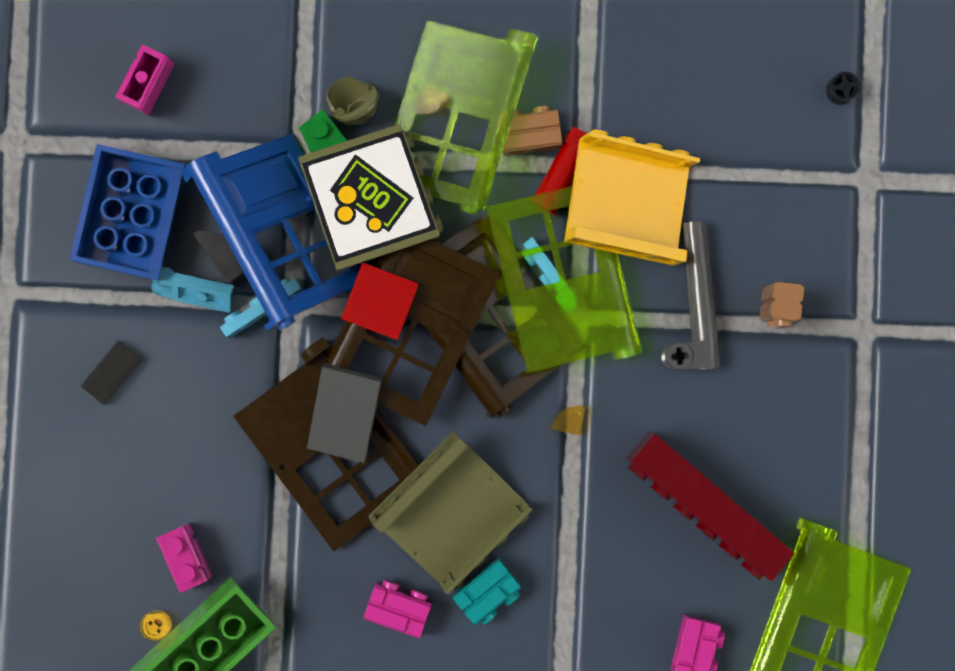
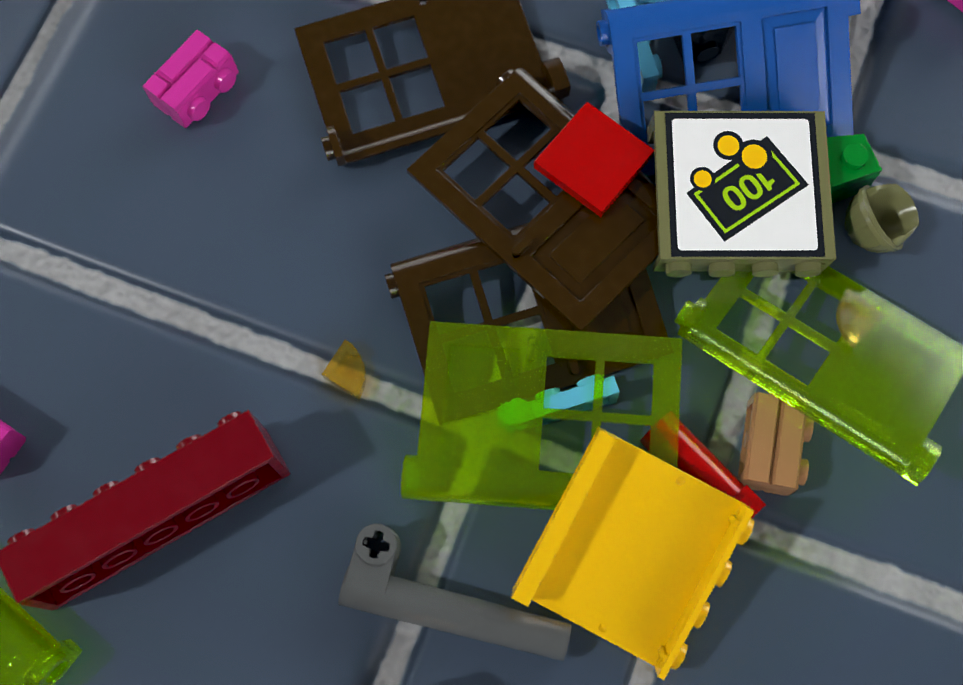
camera: 110 degrees right, 15 degrees down
(344, 413) = (462, 79): dark grey tile -> none
(451, 512) = (285, 174): olive panel -> none
(487, 592) = (165, 190): teal brick -> none

